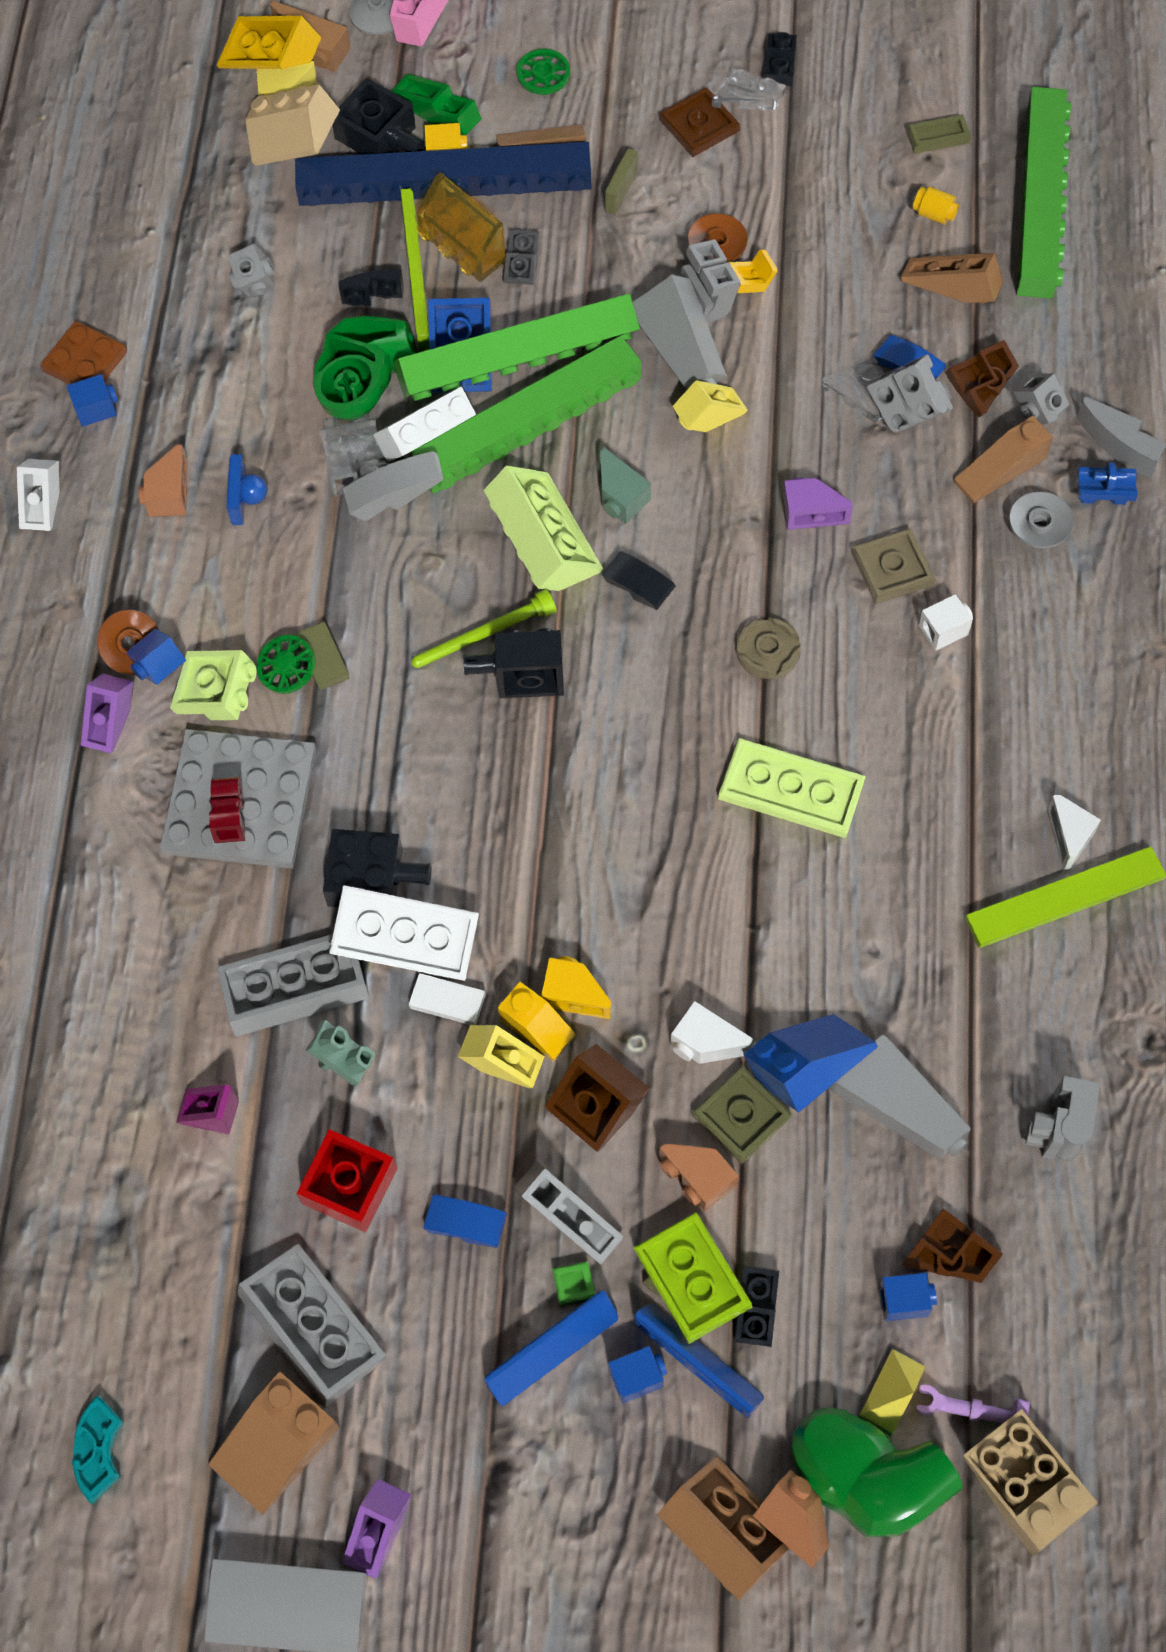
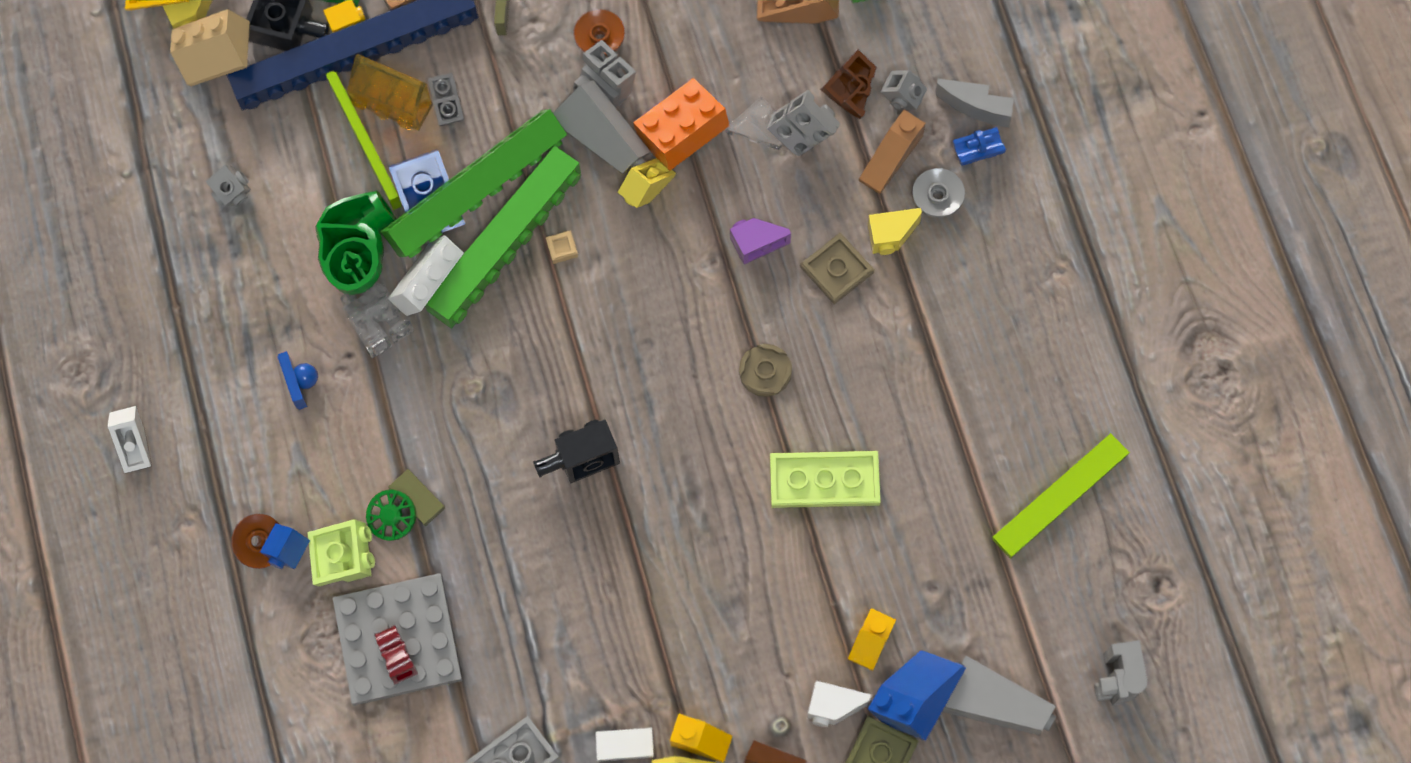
camera: 20 degrees left, 5 degrees up
(83, 355) = (117, 306): dark orange plate -> none
(93, 400) = (141, 342): blue brick -> none
(105, 712) = (262, 606): medium lavender slope -> none
(166, 485) = (233, 396): nougat slope -> none
(360, 288) = (324, 171): black slope -> none
(368, 863) = (524, 663): black brick -> none
(393, 485) = (420, 336): light grey slope -> none
(403, 933) = (573, 706): white tile -> none
(540, 605) = (574, 396): lime piece -> none
(541, 528) = (552, 331): yellowish green slope -> none
(573, 989) = (719, 702): yellow slope -> none
(588, 446) = (562, 247): none -> tan tile
(622, 488) = (601, 275): sand green slope -> none
(638, 579) = (644, 348): black slope -> none
(755, 274) = (640, 54): yellow bracket -> none
(772, 357) = (681, 124): none -> orange brick
(779, 981) = (871, 639): none -> yellow slope
(898, 352) = (786, 87): blue slope -> none
(946, 622) = (895, 303): white brick -> none
(973, 542) = (892, 229): none -> light yellow slope
(1071, 827) = (1047, 440): white slope -> none

